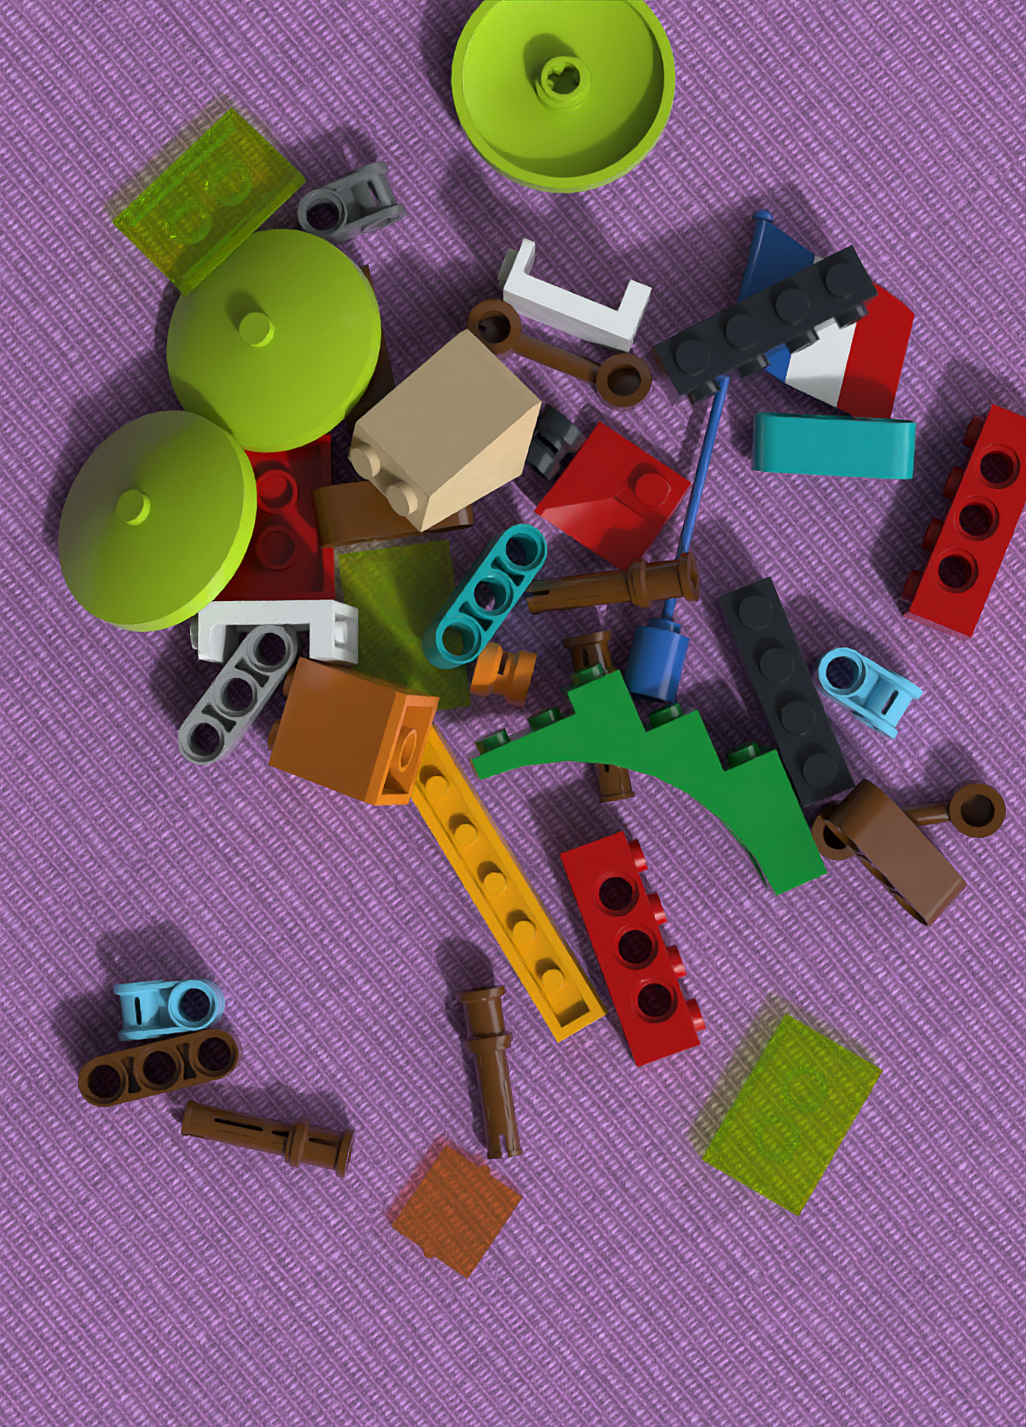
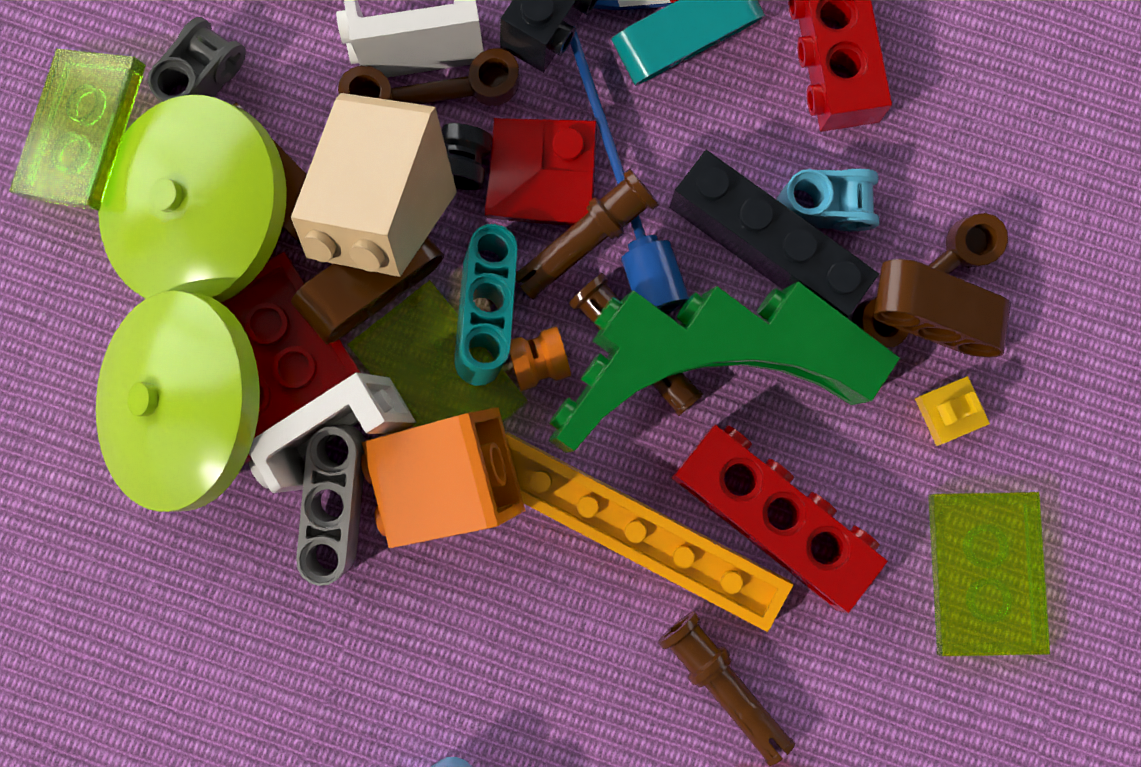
camera: 35 degrees left, 5 degrees down
(854, 950) = (952, 411): none -> yellow tile

